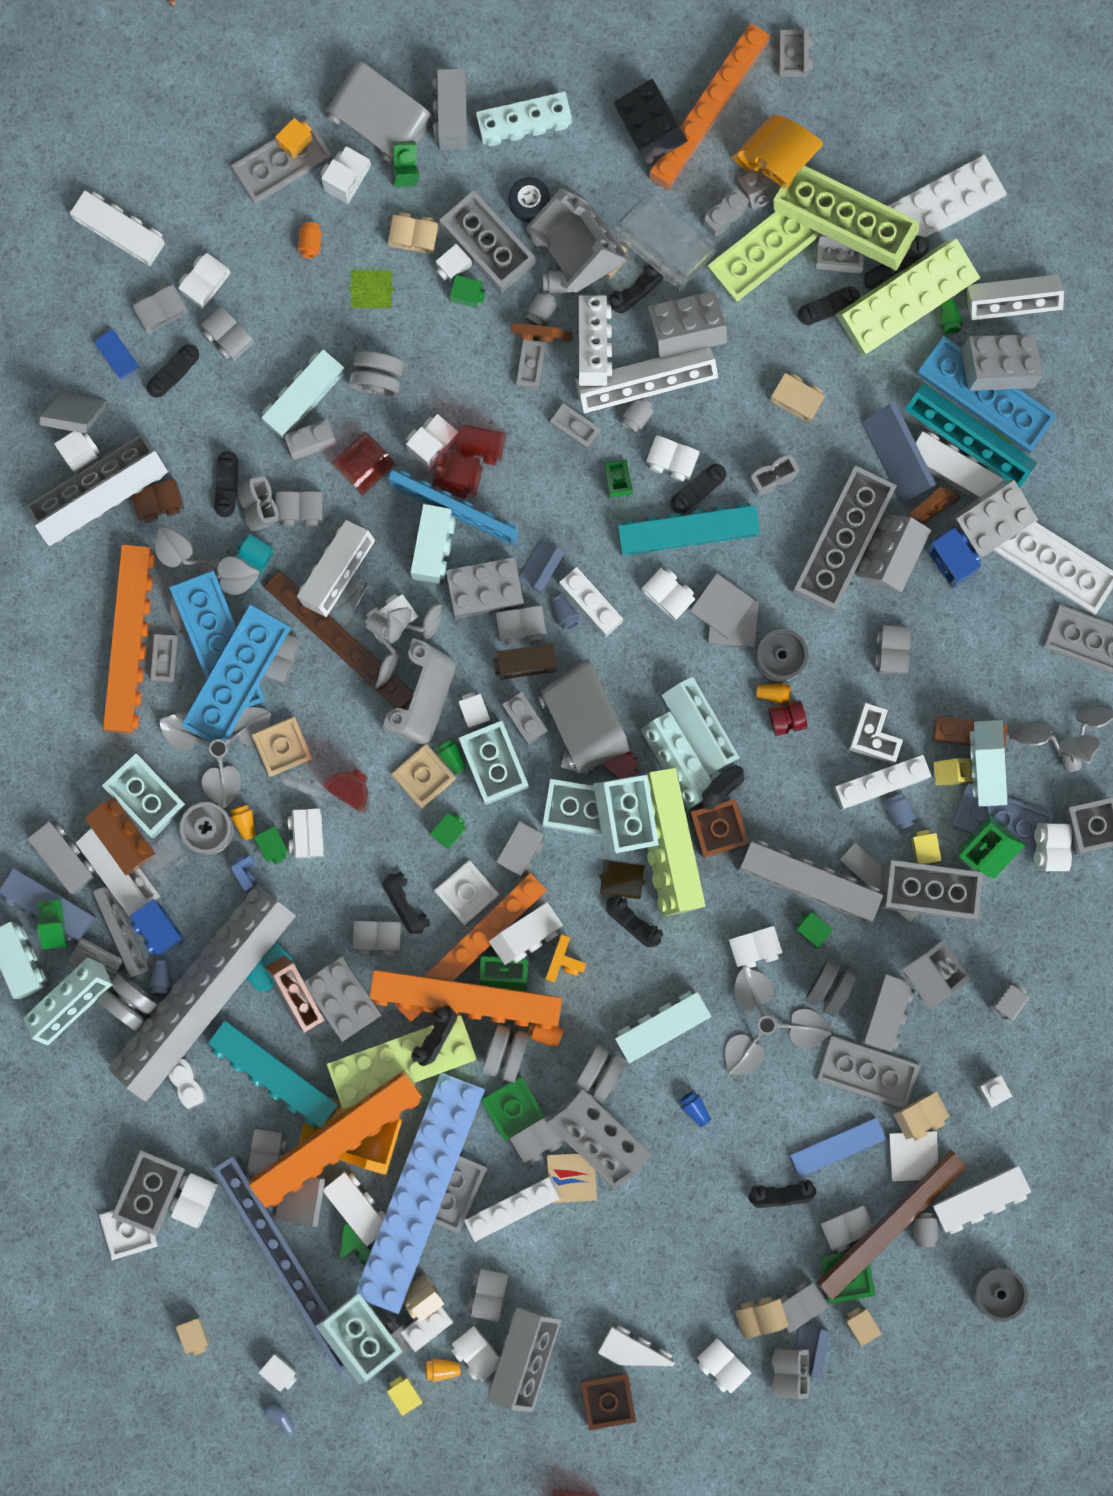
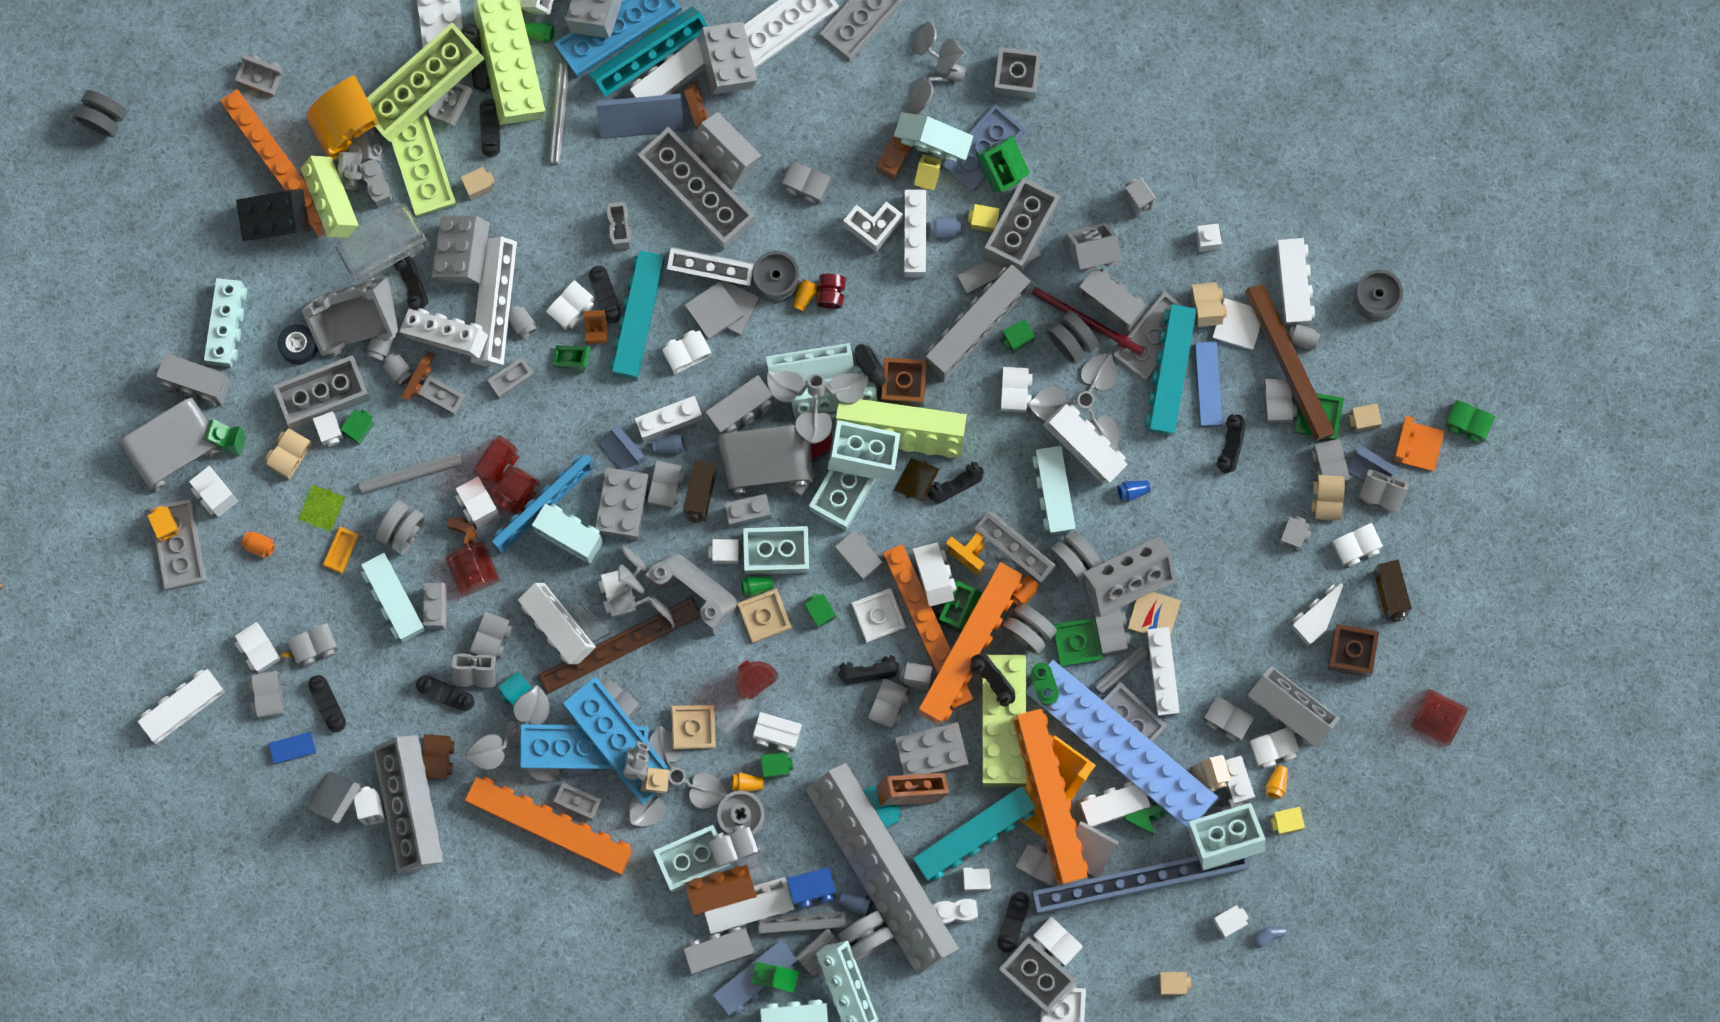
camera: 65 degrees left, 5 degrees down
(166, 832) = (733, 846): none -> light grey brick
(198, 1147) = (1013, 922): none -> black piece
(201, 314) = (286, 661): none -> clear piece
(206, 727) = (655, 781): none -> tan brick
(218, 702) = (636, 761): none -> light grey hips
(228, 1093) = (976, 879): none -> white panel
(245, 878) = (795, 799): medium blue bracket -> none
(335, 324) = (341, 550): none -> light orange tile
(403, 431) = (460, 524): none -> dark orange bracket
(414, 955) = (916, 676): none -> light grey brick
(439, 363) = (410, 473): none -> light grey axle
(454, 1090) = (1044, 683): none -> green plate
(501, 1164) = (1121, 669): none -> light grey axle
(587, 1009) = (1016, 546): none -> light grey fence
(627, 671) = (741, 407): none -> light grey brick
(629, 749) = (813, 426): none -> light grey plant
(659, 492) = (595, 326): none -> dark orange bracket
(685, 1421) = (1392, 591): none -> dark brown window
(691, 170) = (329, 196): none -> yellowish green brick
(711, 1296) = (1295, 533): none -> light grey brick
(721, 1041) = (1085, 444): none -> white brick
(727, 179) = (349, 169): none -> light grey hips
(765, 315) = (478, 183): none -> tan brick
(766, 584) = (710, 266): none -> white brick
(797, 397) = (559, 182): tan brick -> none
(837, 1102) = (1171, 369): none -> teal brick
(848, 1041) = (1122, 340): none -> dark red bar
(855, 1392) = (1418, 445): none -> orange bracket
(871, 369) = (558, 113): none -> light grey axle
(900, 1438) = (1469, 421): none -> green brick
(954, 557) = (747, 103): blue brick -> none
(1053, 847) = (1022, 113): white brick -> none

